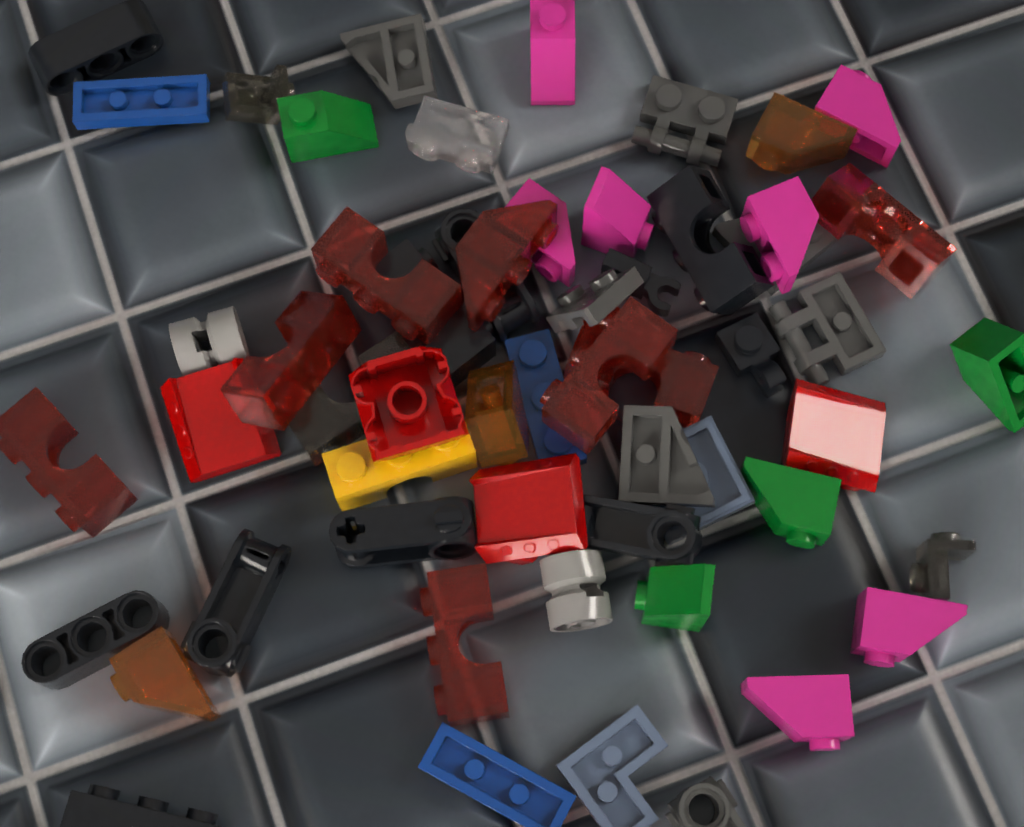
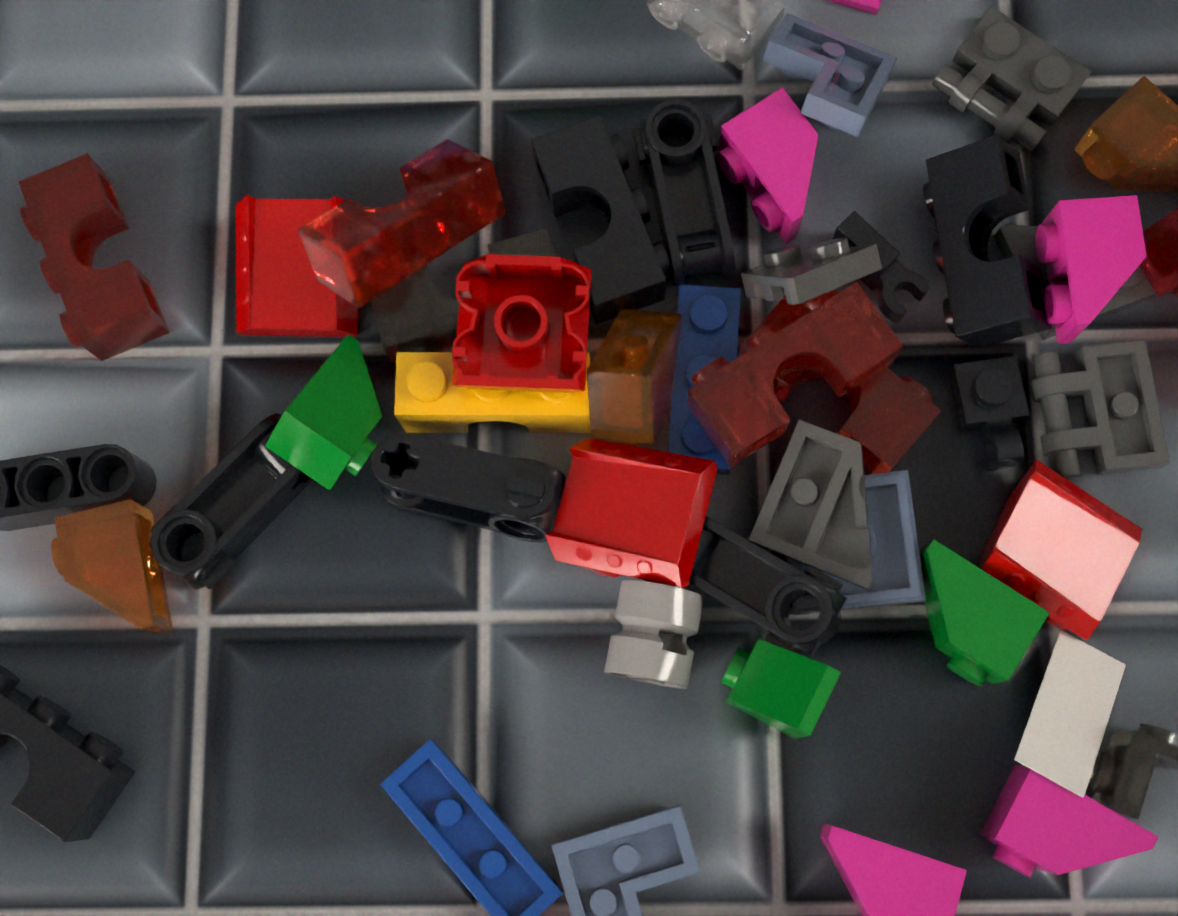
camera: 25 degrees right, 5 degrees up
(224, 334) = (335, 160): light grey wheel -> none
(290, 518) = (330, 419): none -> green slope
(415, 303) = (581, 199): clear red arch -> none
(469, 689) = (497, 594): clear red arch -> none
(499, 253) = (707, 170): clear red slope -> none
(568, 153) = (844, 72): none -> sand blue plate
(615, 217) = (876, 172): dark pink slope -> none
(881, 544) = (1070, 713): none -> white sticker

